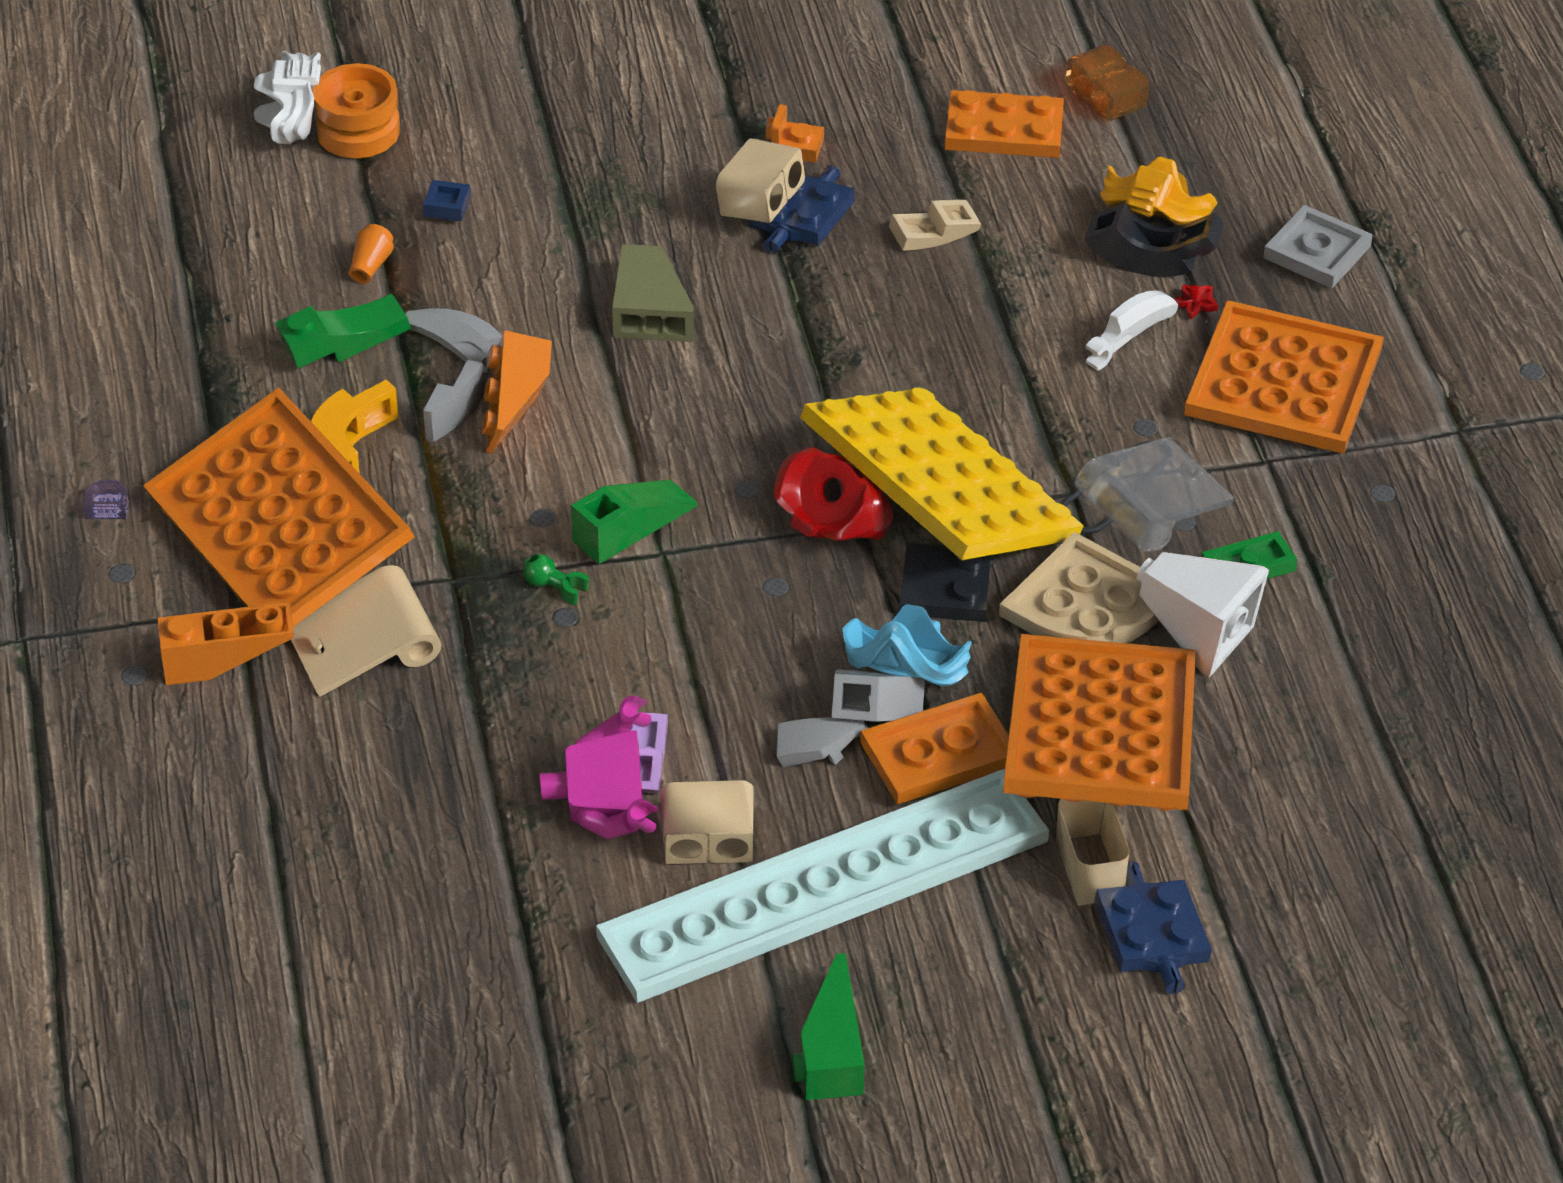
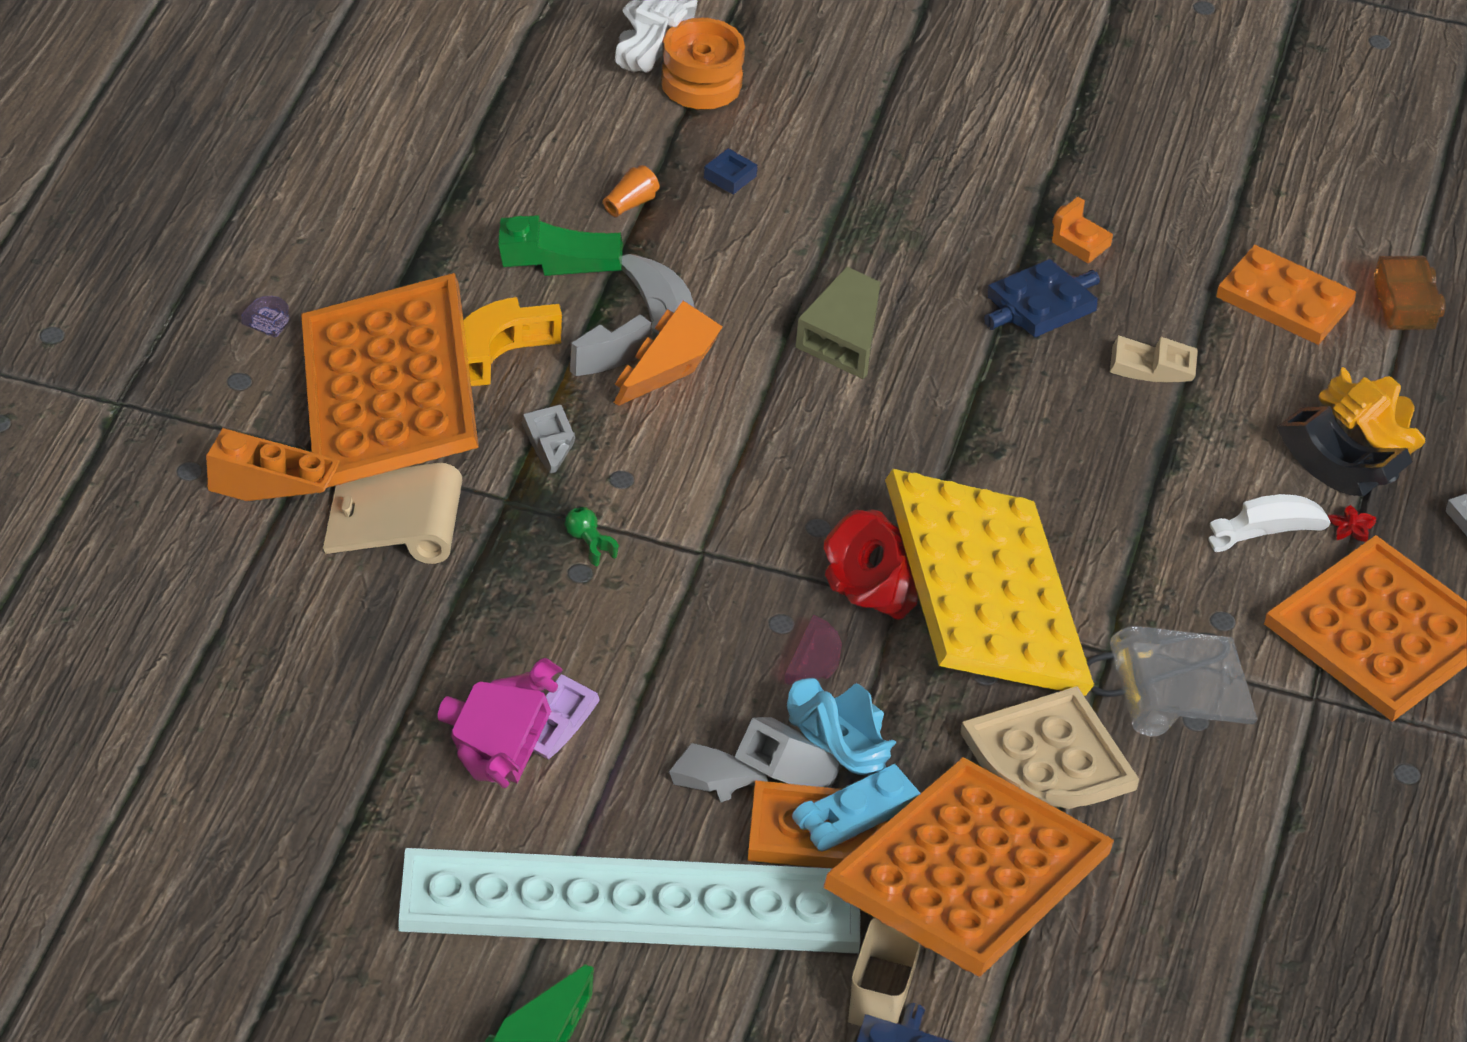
camera: 25 degrees right, 0 degrees up
(452, 505) = (549, 435): none -> light grey slope
(624, 515) = (684, 503): green slope -> none
(707, 821) = (565, 802): tan piece -> none
(759, 180) = (1008, 257): tan piece -> none
(828, 599) = (816, 654): none -> clear pink tile
(945, 583) = (929, 690): black plate -> none
(968, 714) = (855, 807): none -> medium azure plate
(1203, 602) = (1145, 802): white slope -> none
(1265, 550) = (1225, 781): green plate -> none

